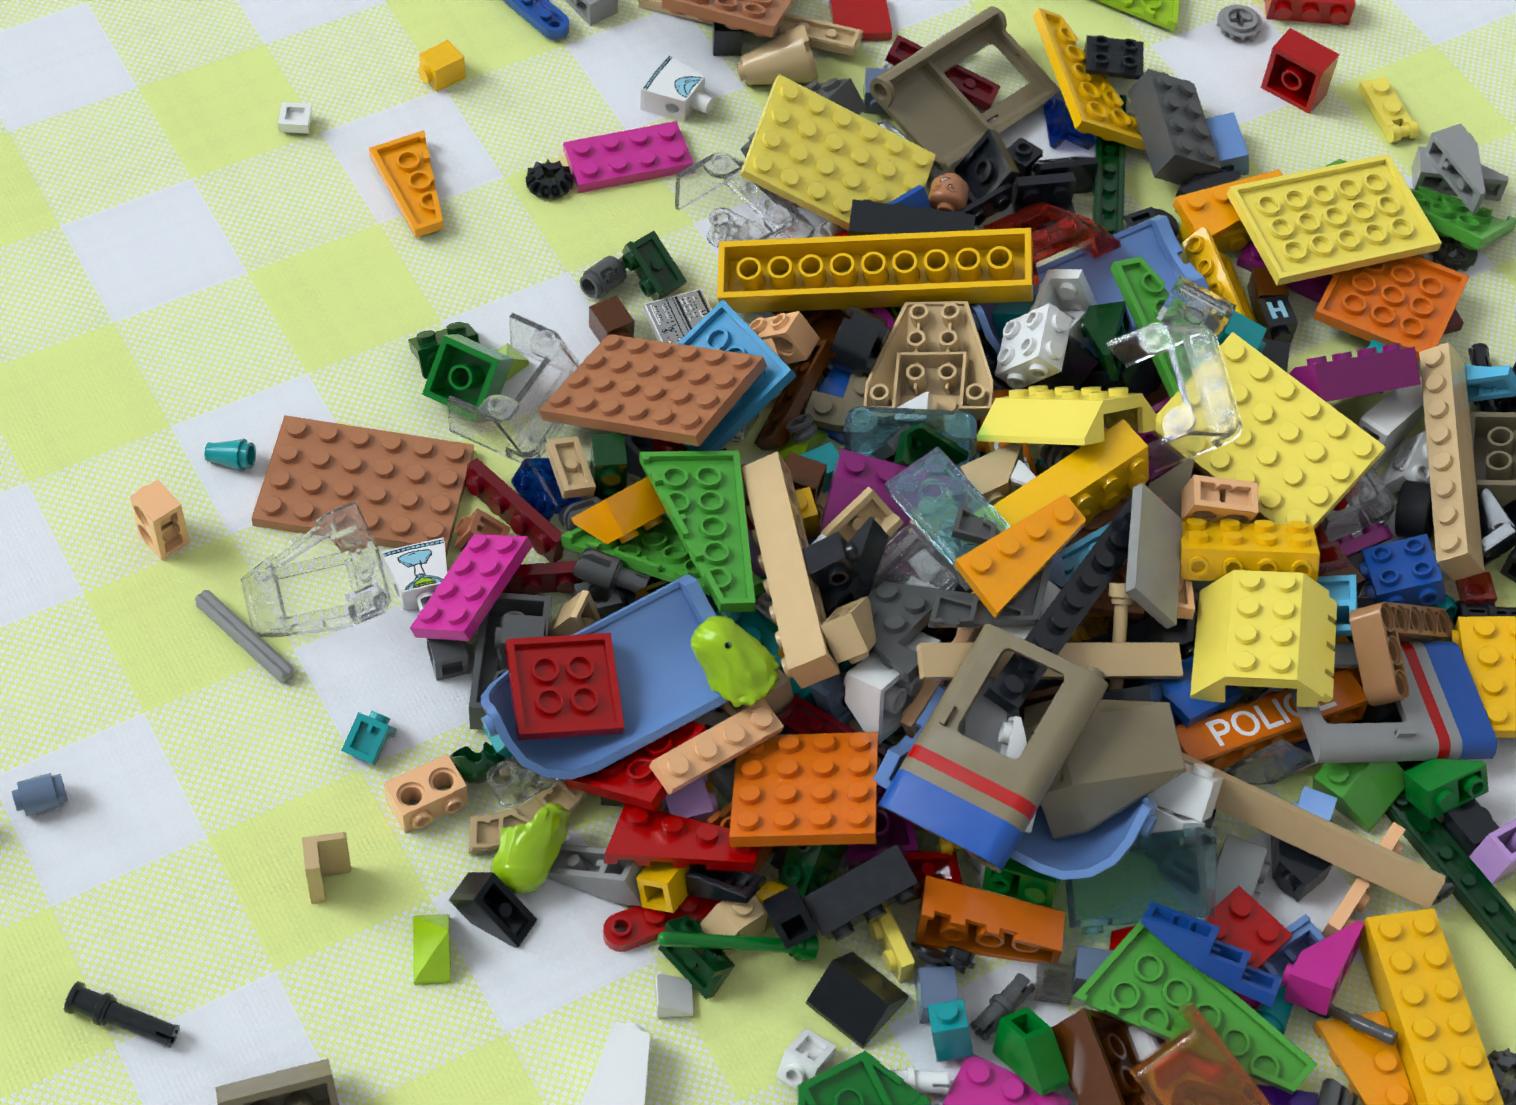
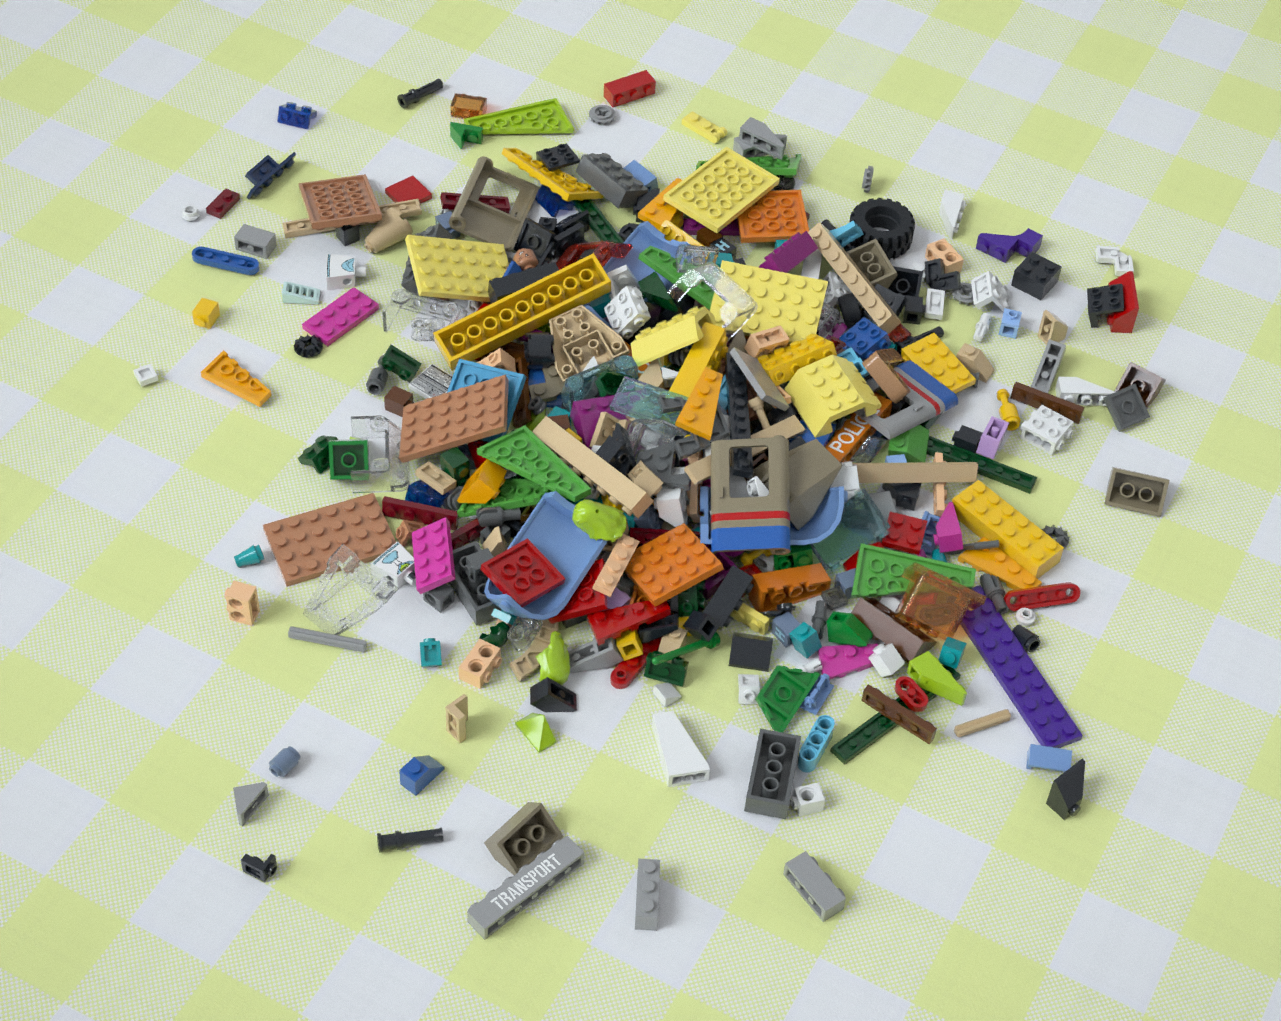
camera: 30 degrees left, 5 degrees down
(215, 918) = (419, 773): none -> blue slope
(581, 84) = (294, 294): none -> light aqua slope
(1198, 945) = (894, 542): blue slope -> none
(1299, 70) = (652, 125): red brick -> none
(1444, 784) = (946, 424): green slope -> none

